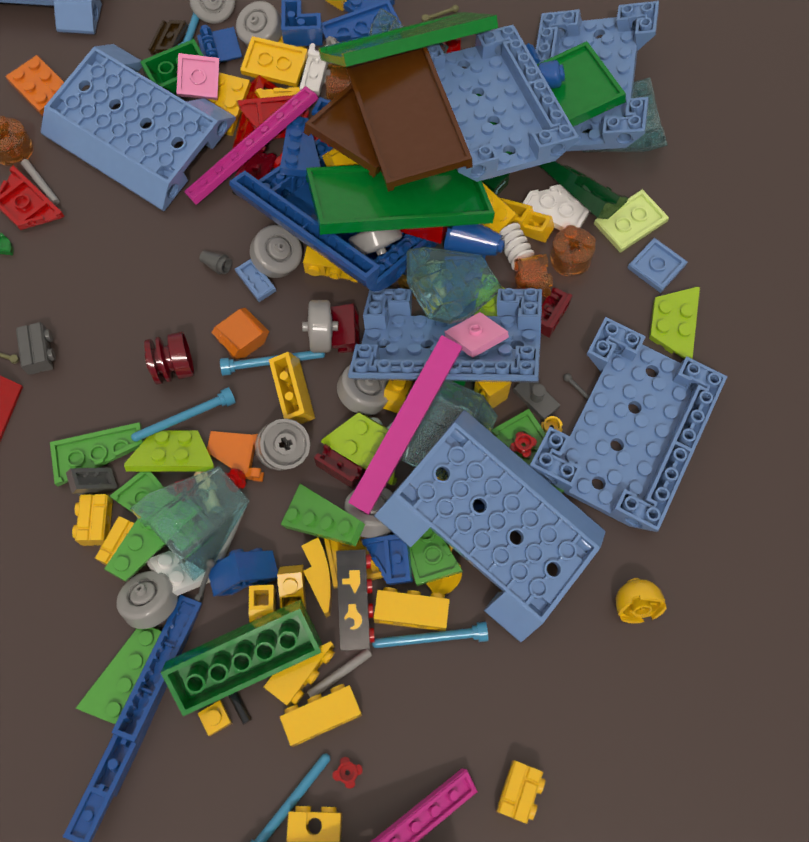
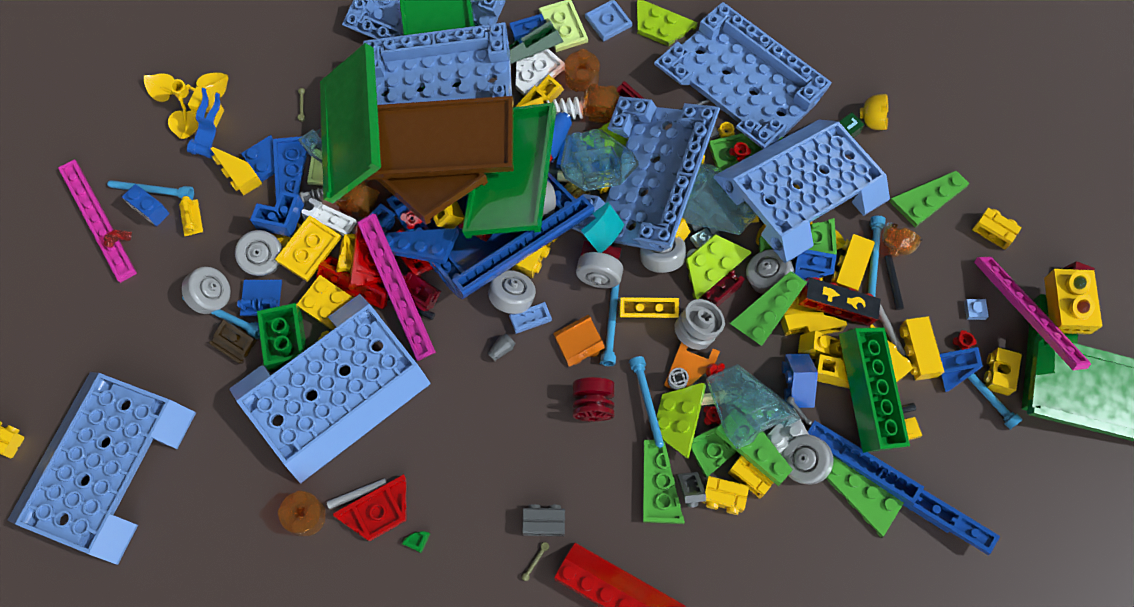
camera: 75 degrees left, 0 degrees up
(35, 82) = (238, 477): orange plate -> none
(197, 76) = (306, 314): bright pink plate -> none
(214, 444) = (677, 382): none -> light grey wheel
(306, 765) = (959, 366): none -> blue wing
(362, 310) = (604, 228): none -> teal slope
(396, 782) = (976, 309): none -> light blue plate
(405, 424) = (724, 215): dark pink tile -> none
(406, 668) = (894, 282): none -> black bar
(460, 661) = (900, 240): none -> clear orange cylinder
(477, 334) = (652, 149): bright pink plate -> none
(537, 692) = (928, 198): none -> bright green wing
(553, 73) = (424, 25): blue head -> none
(604, 569) = (852, 124): none -> dark green brick
(609, 178) = (524, 26): none -> blue plate

